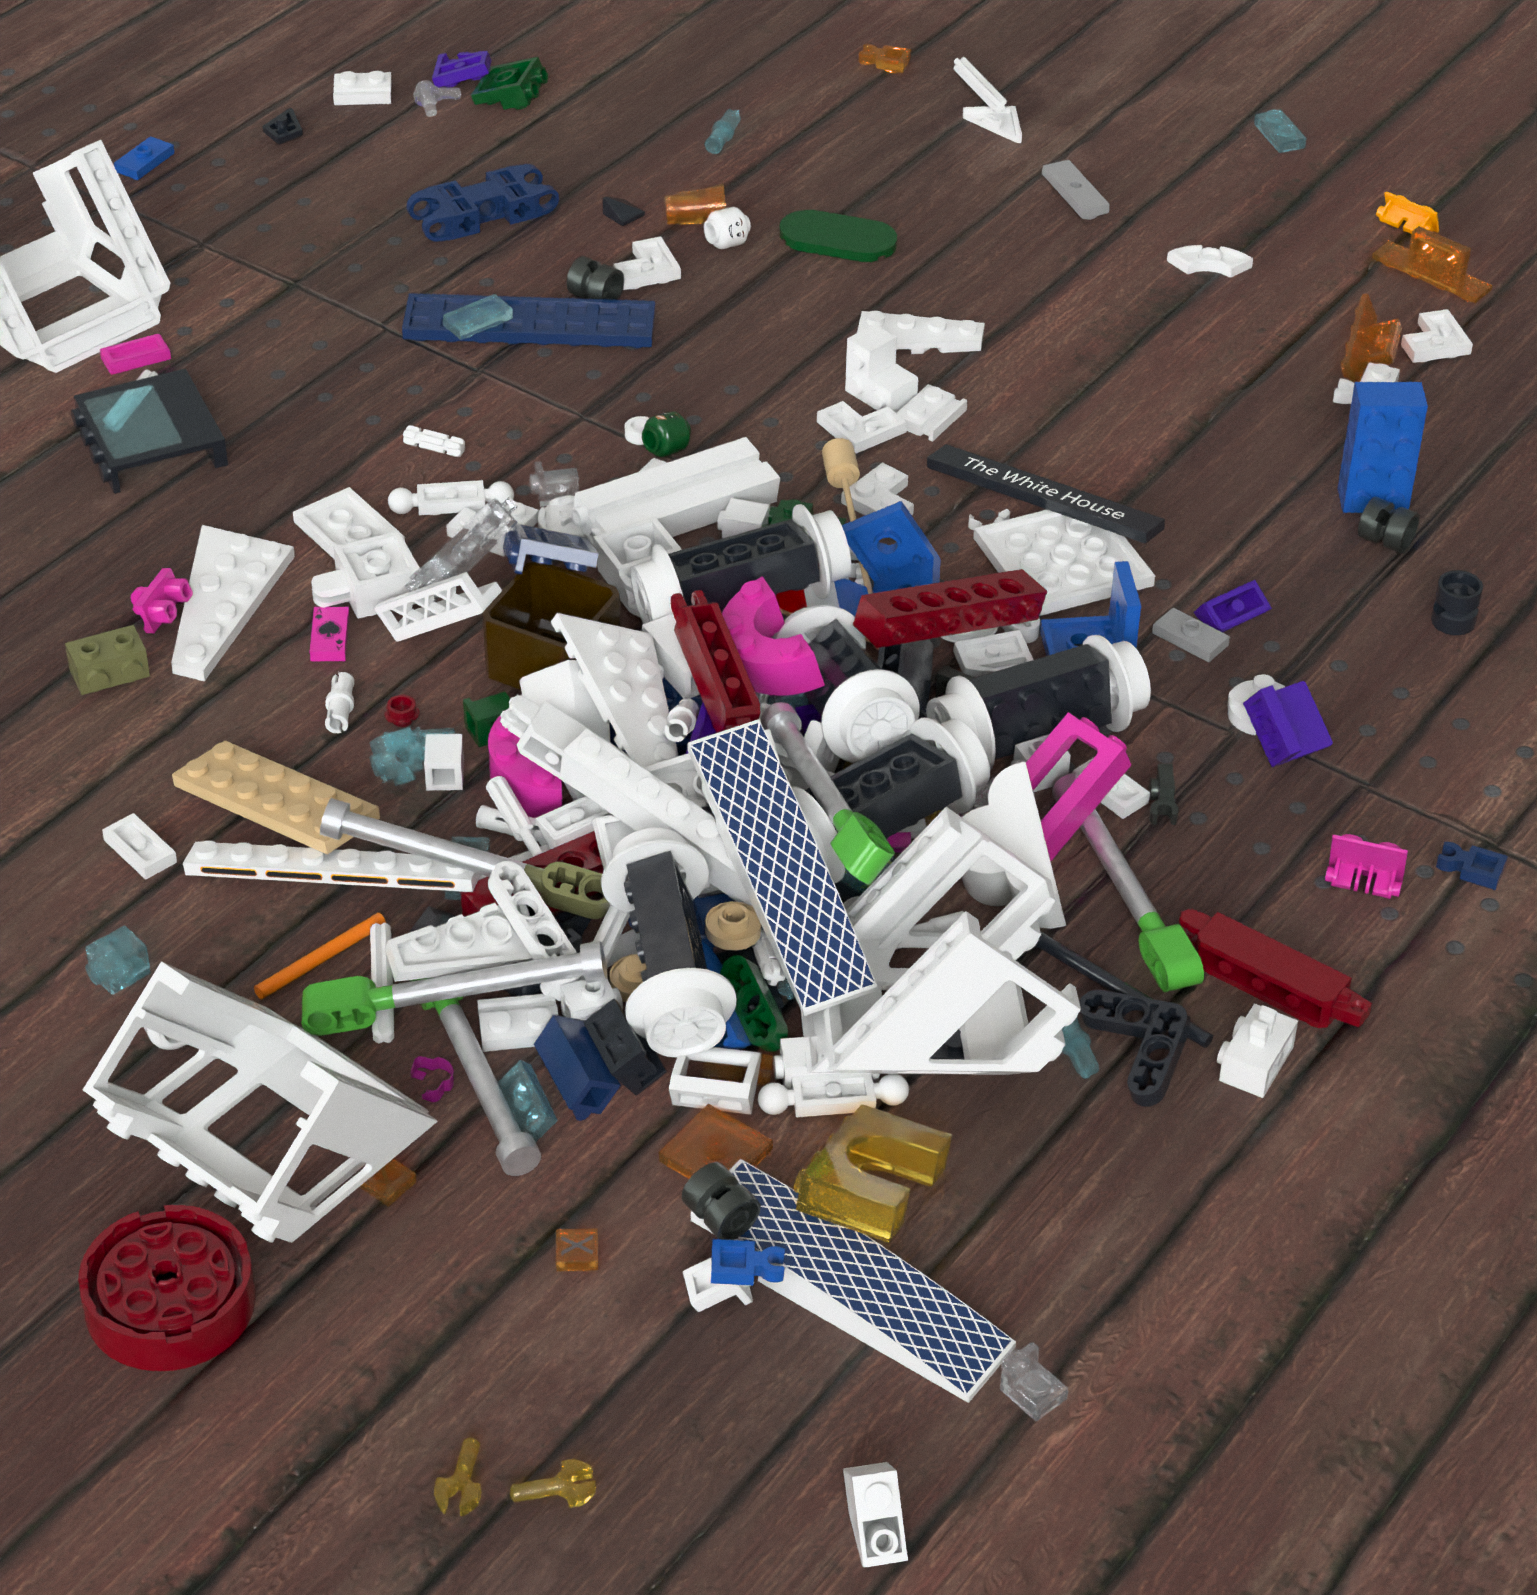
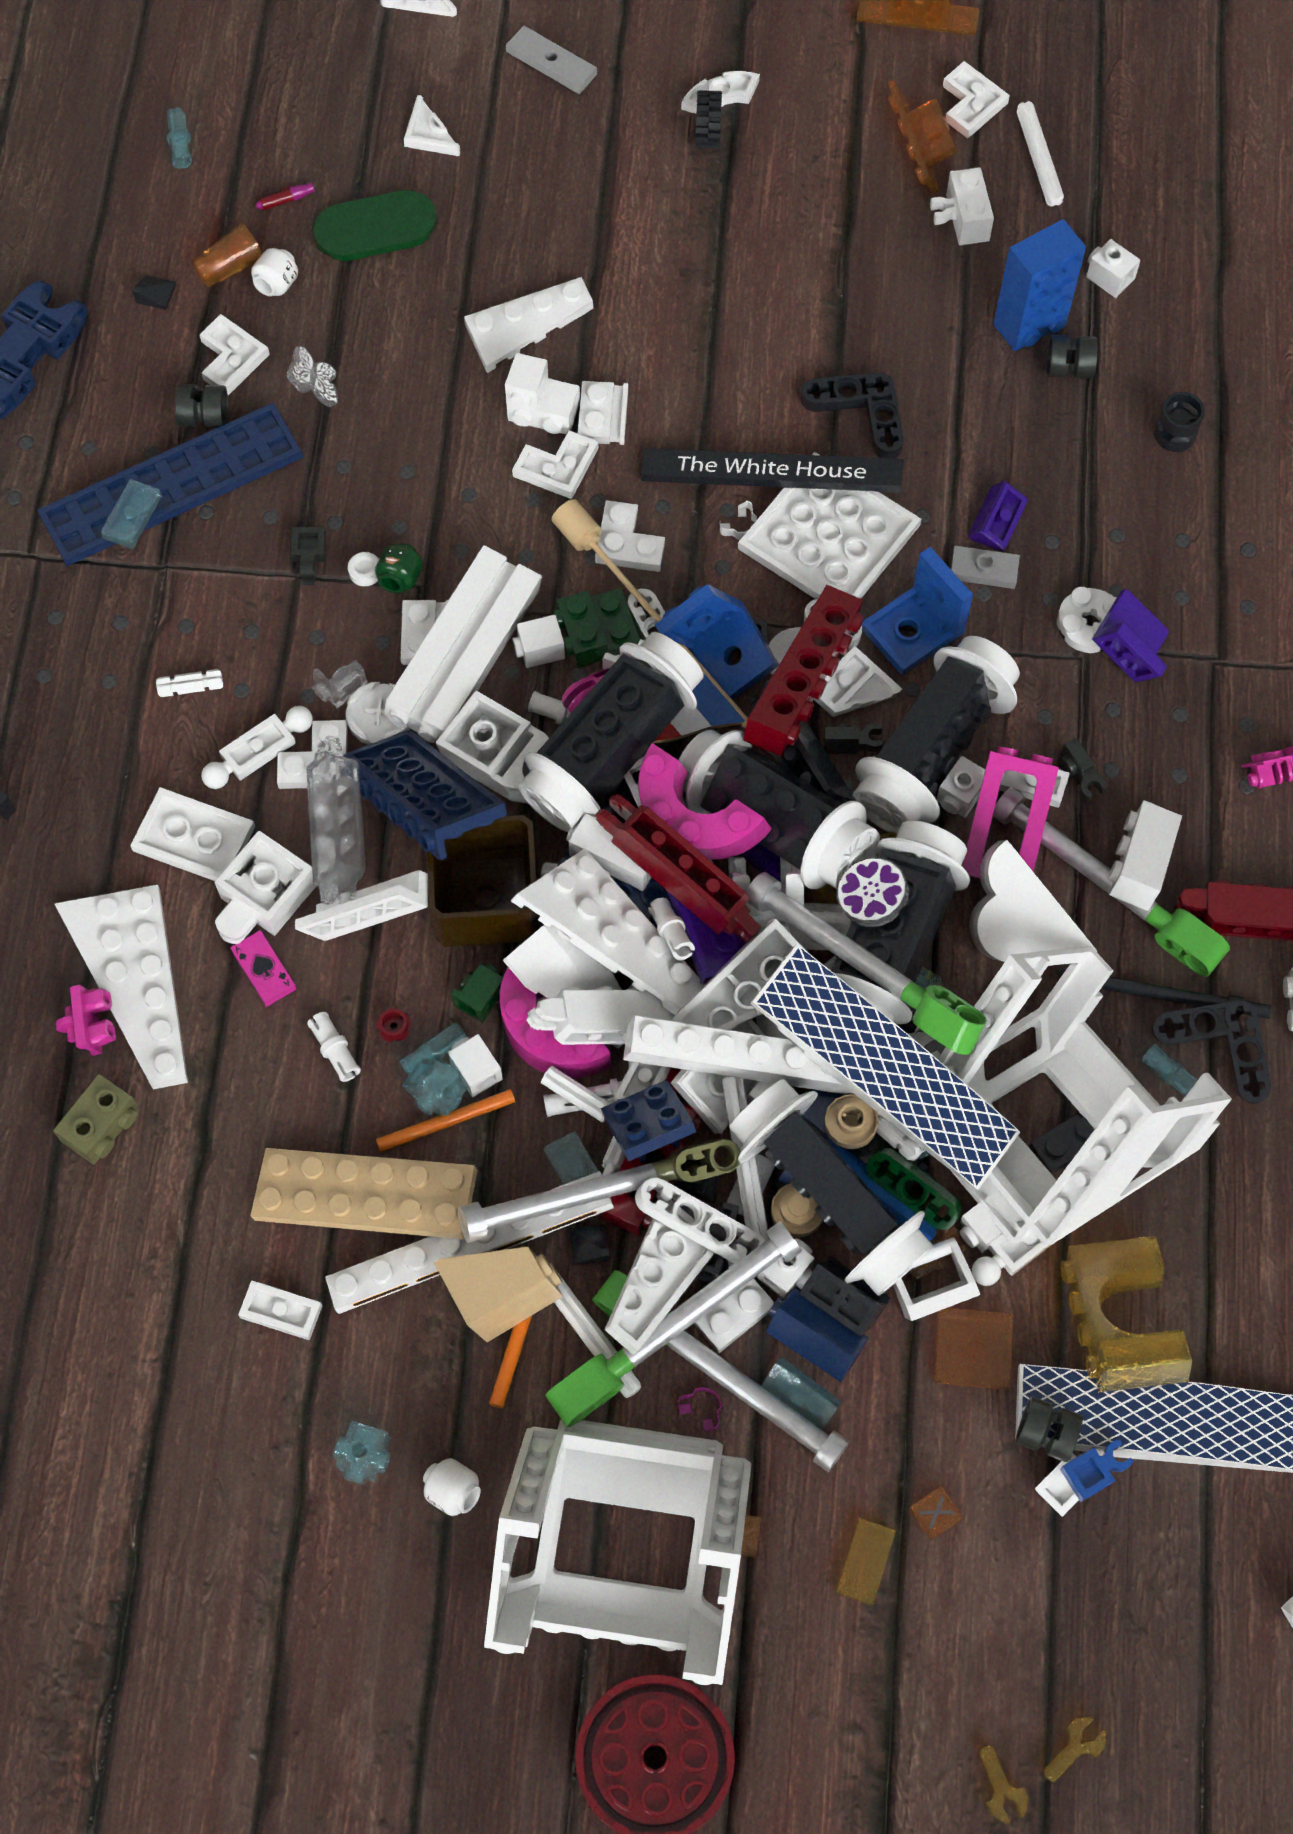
camera: 30 degrees left, 25 degrees up
(326, 895) = (499, 1287): none -> tan slope
(394, 791) = (441, 1122): none -> orange bar
(482, 1253) = (865, 1562): none -> clear yellow tile
(534, 826) = (648, 1121): none -> dark blue plate
(603, 397) = (308, 547): none -> pearl dark grey plate
(699, 298) = (313, 376): none -> clear animal
(782, 194) = (285, 195): none -> piece
(873, 751) = (872, 891): none -> tile
(932, 198) = (428, 132): none -> white tile
(1171, 869) = (1144, 855): none -> white brick
(1178, 262) = (708, 119): none -> black tyre
(1181, 487) = (873, 401): none -> black beam
(1473, 394) = (1040, 154): none -> white axle
(1479, 485) = (1112, 267): none -> white brick

